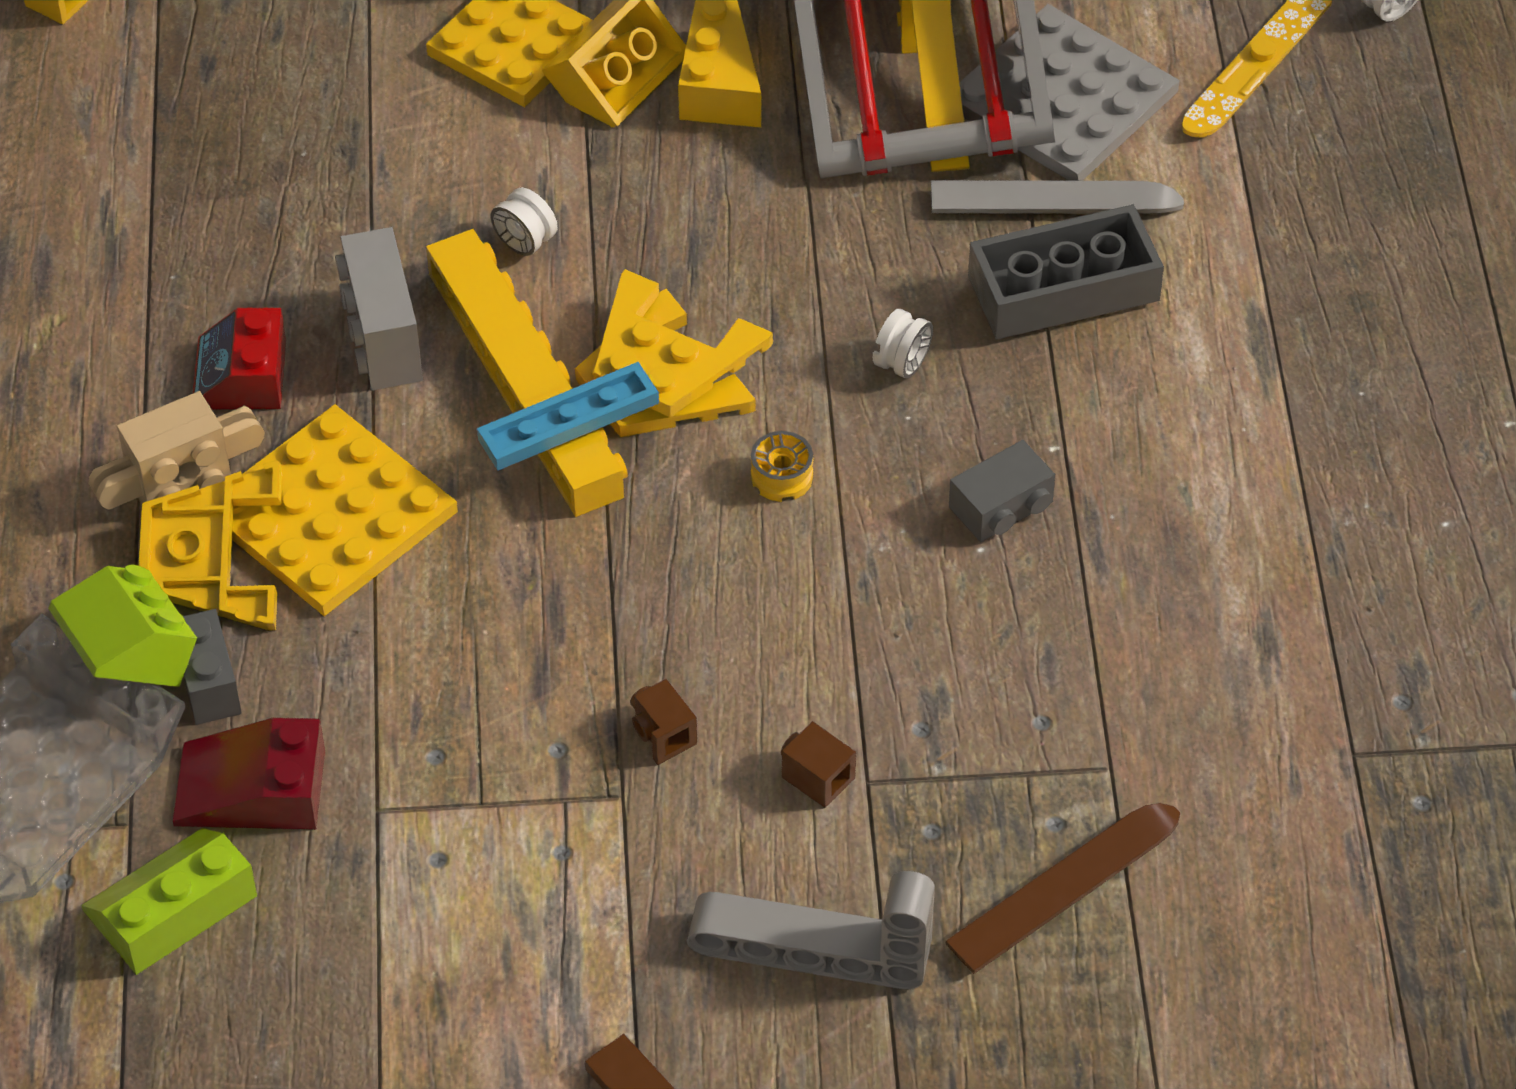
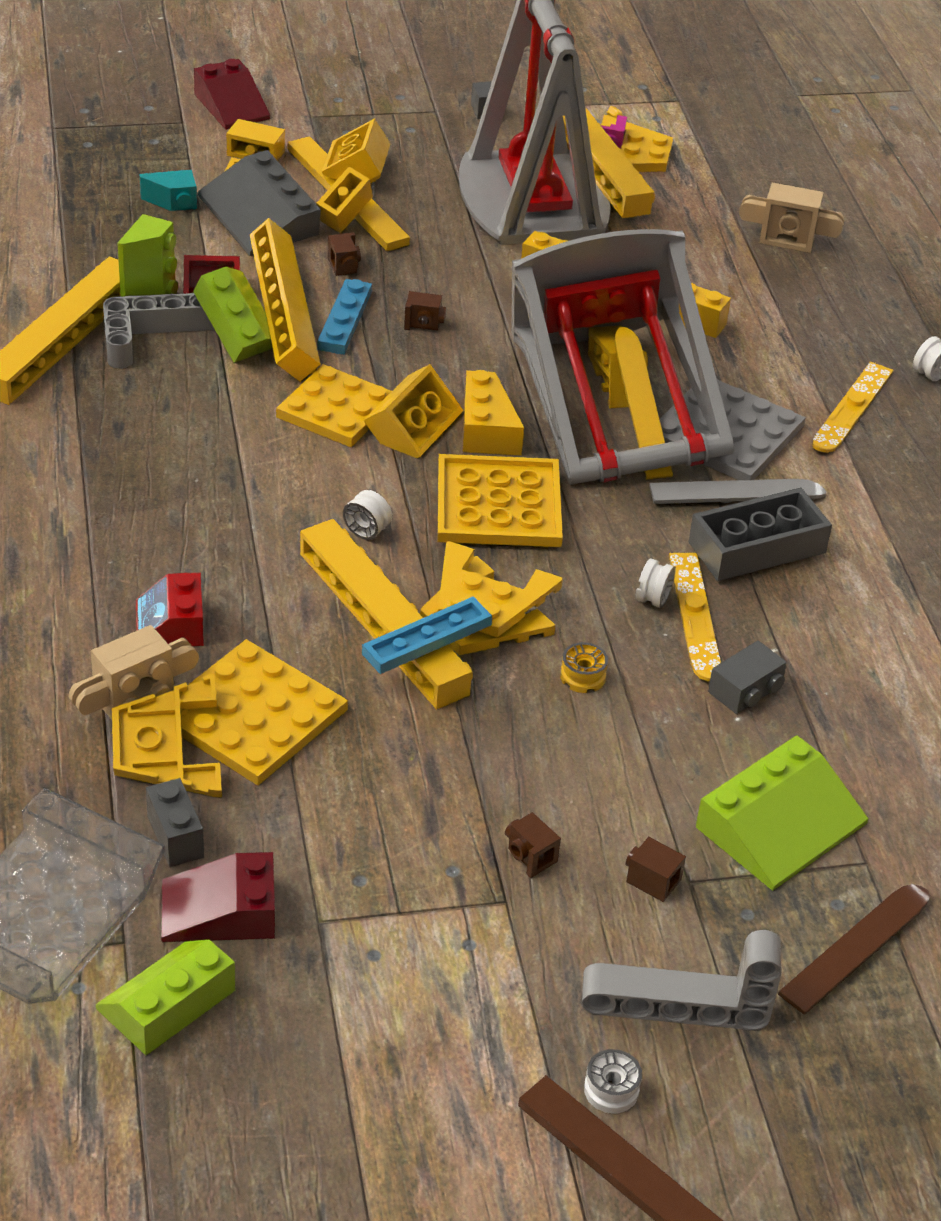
camera: 10 degrees left, 10 degrees down
(125, 627) = (113, 792): lime slope -> none
(380, 307) = (273, 572): light grey brick -> none
(703, 1027) = (626, 1079): none -> white wheel
(712, 202) = (499, 500): none -> yellow plate
(955, 386) = (695, 614): none -> yellow piece
(1004, 693) = (781, 813): none -> lime slope

